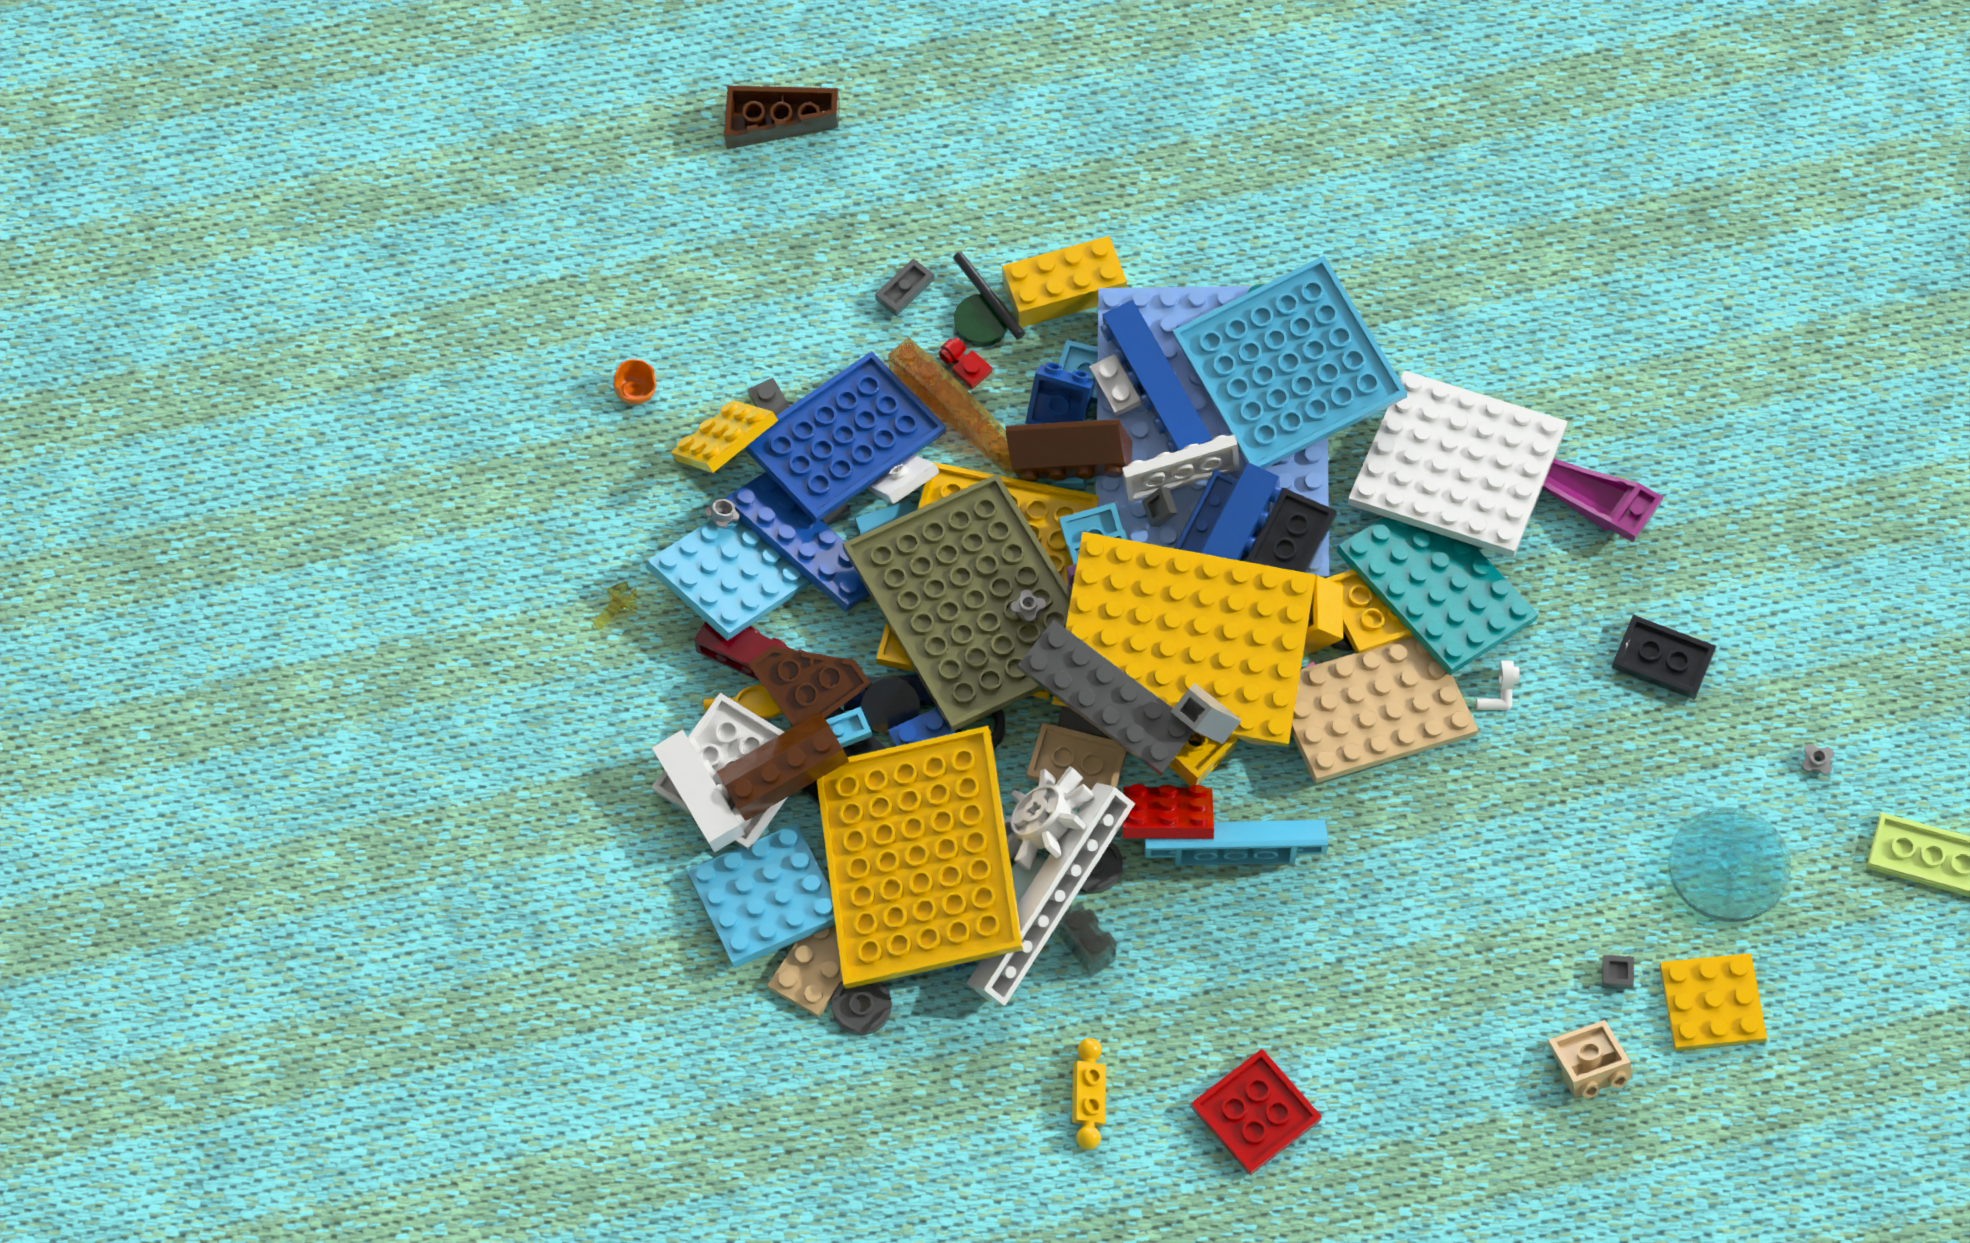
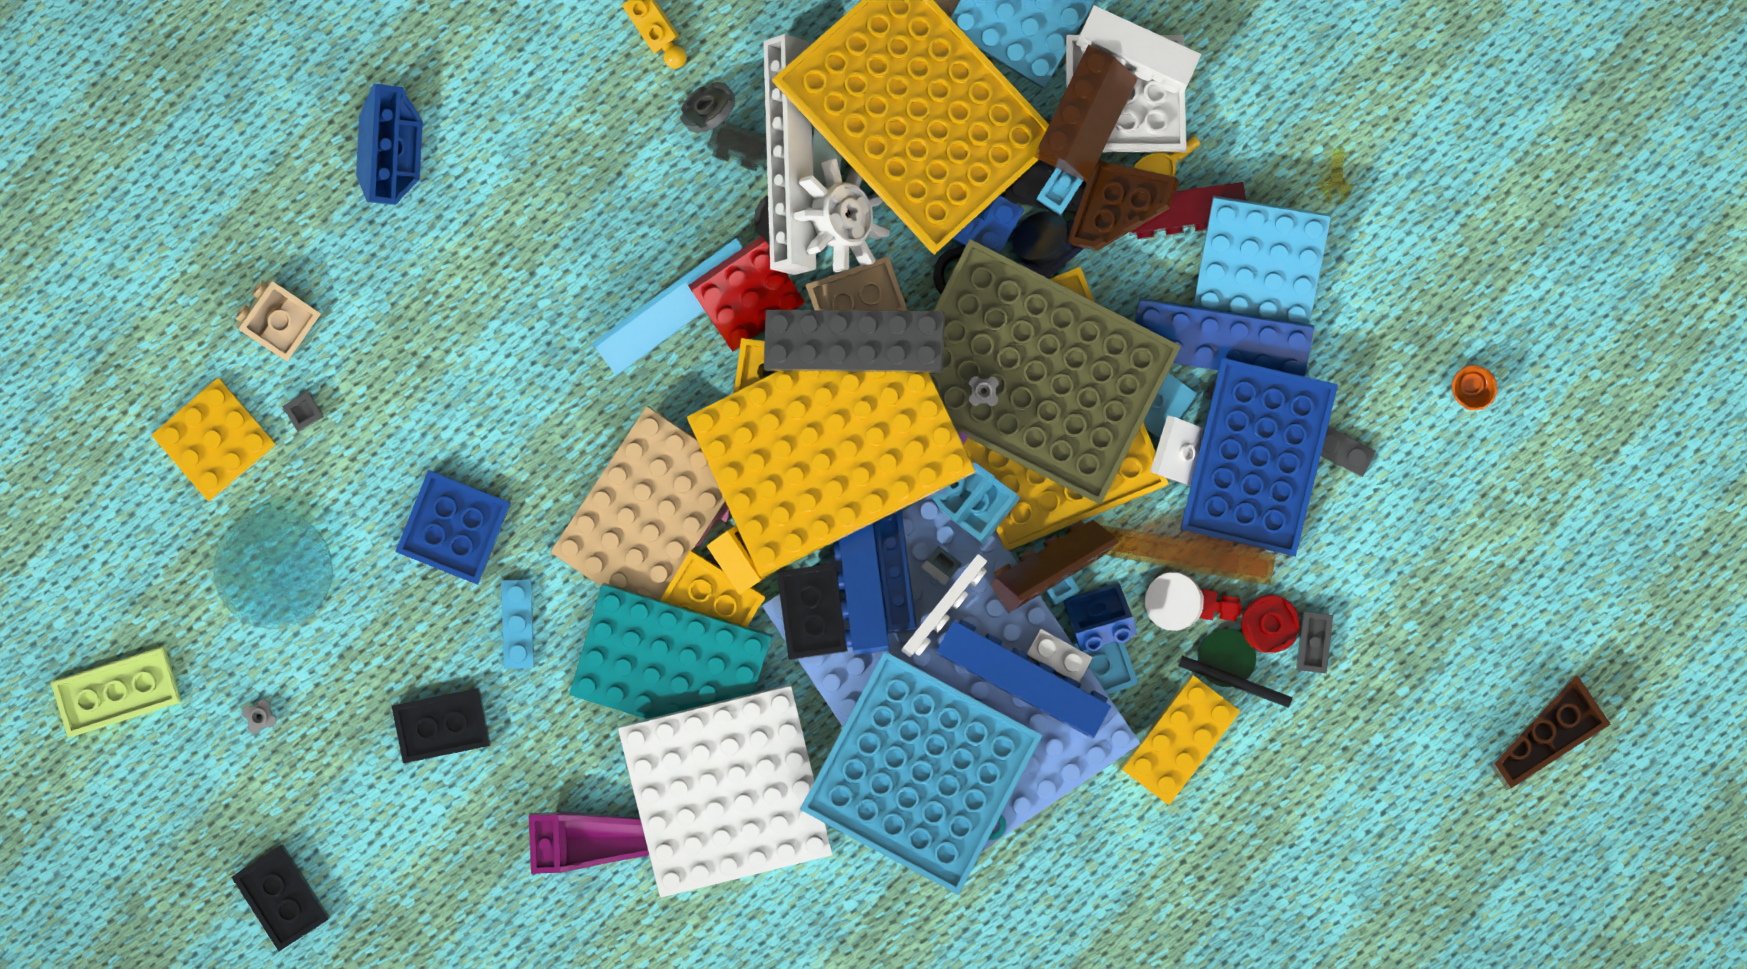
camera: 140 degrees right, 25 degrees up
(722, 512) = (1309, 318): light grey plate -> none
(723, 436) = (1356, 382): yellow plate -> none
(929, 320) = (1270, 624): none -> red tile
(992, 379) = (1174, 601): none -> white tile
(1092, 984) = (707, 107): none -> dark grey tile
(1205, 714) = (764, 379): light grey slope -> none
(1256, 1112) = (510, 95): red plate -> none
(1397, 1133) = (388, 145): none -> blue wedge
(1507, 677) = (556, 617): white plate -> none
(1544, 695) = (517, 624): none -> medium azure plate
(1548, 800) = (453, 527): none -> blue plate
(1890, 612) = (280, 897): none -> black plate

